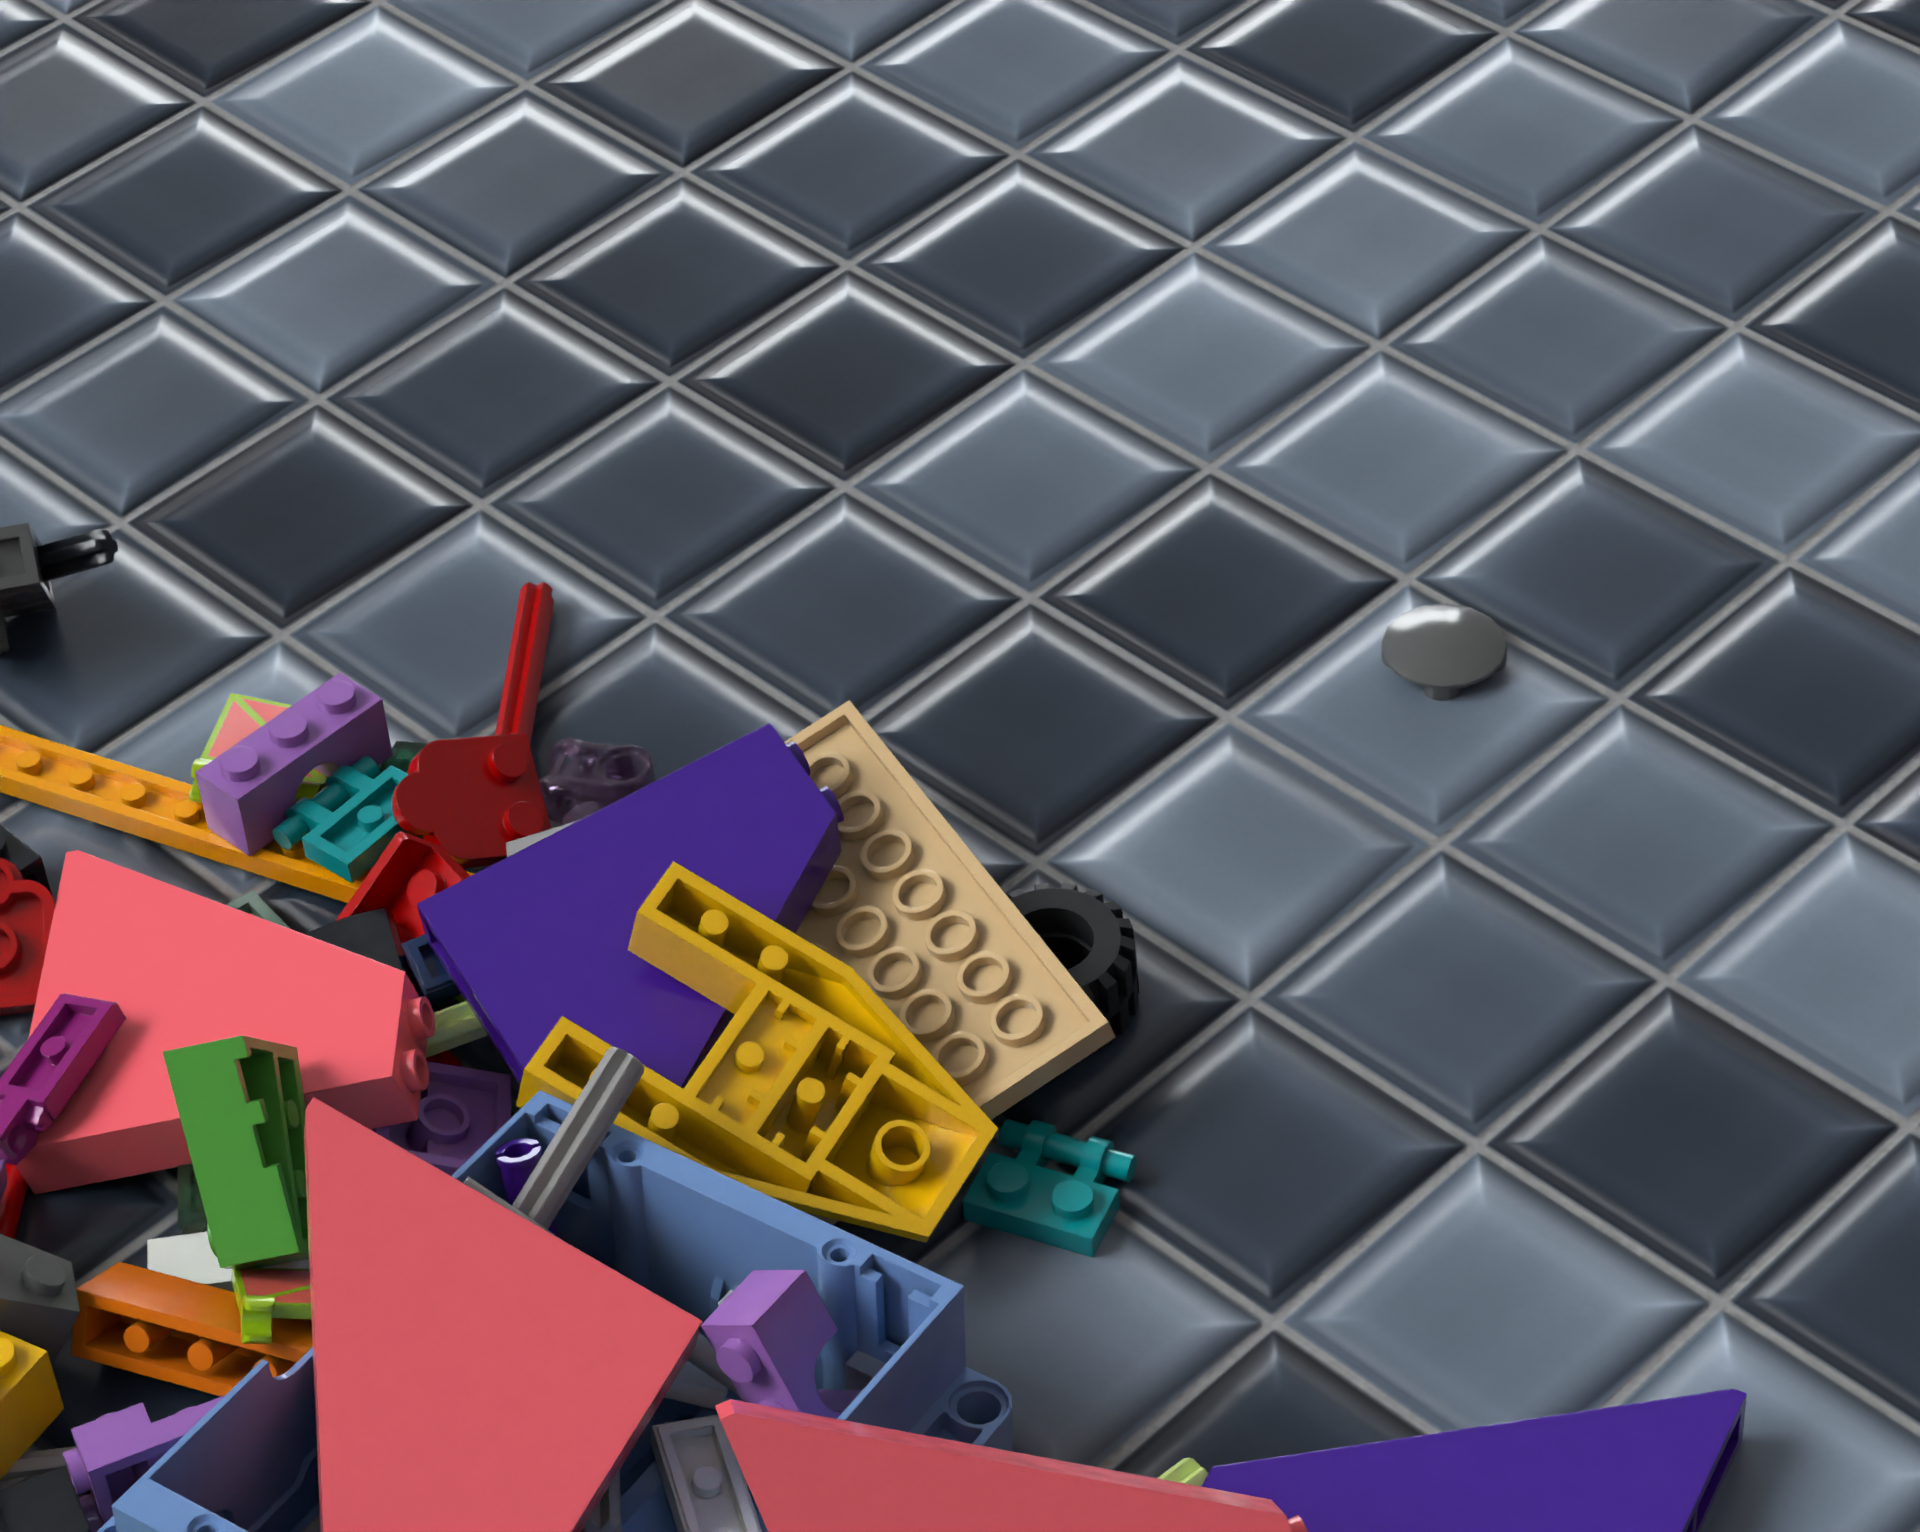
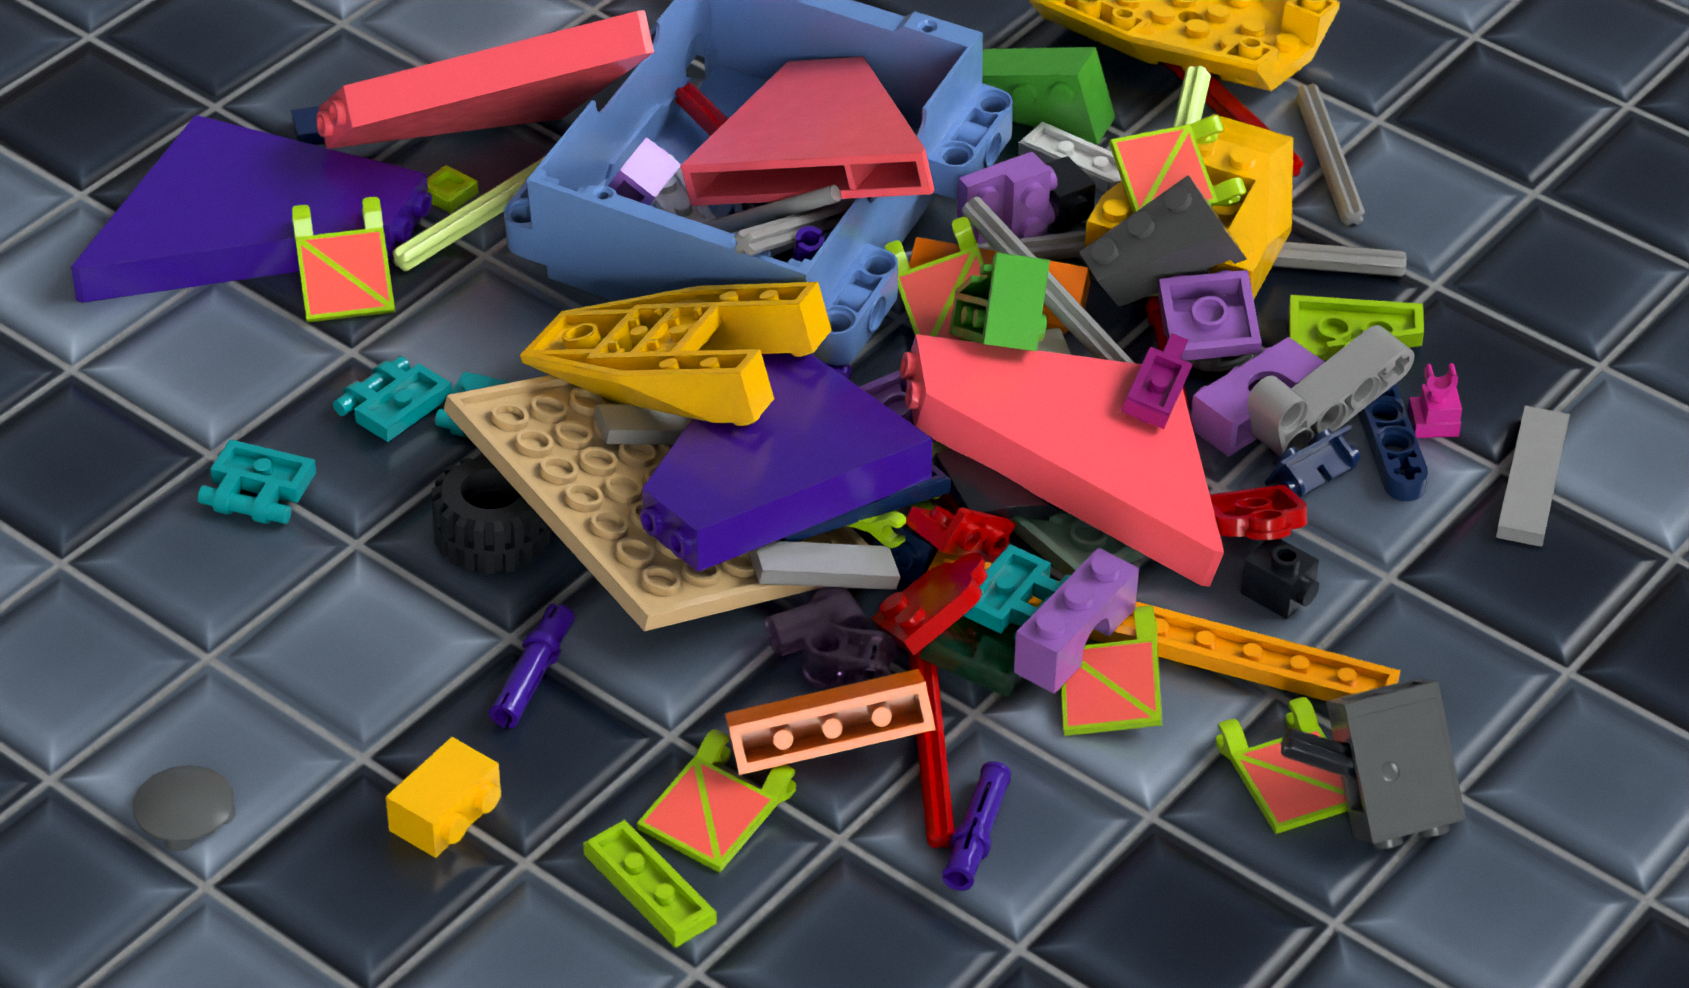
camera: 170 degrees right, 0 degrees up
(94, 661) = (1284, 789): none -> flag
(149, 1260) = (1056, 296): none -> light grey axle
(498, 588) = (972, 839): none -> dark purple pin
(641, 664) = (830, 721): none -> orange brick
(799, 633) = (712, 811): none -> flag
(886, 562) = (650, 883): none -> lime tile
(997, 810) = (539, 652): none -> dark purple pin
(1123, 629) = (443, 797): none -> yellow brick
(1187, 1186) = (393, 397): none -> teal plate
(1290, 1412) = (345, 270): none -> coral flag
(1396, 1063) = (261, 471): none -> teal plate

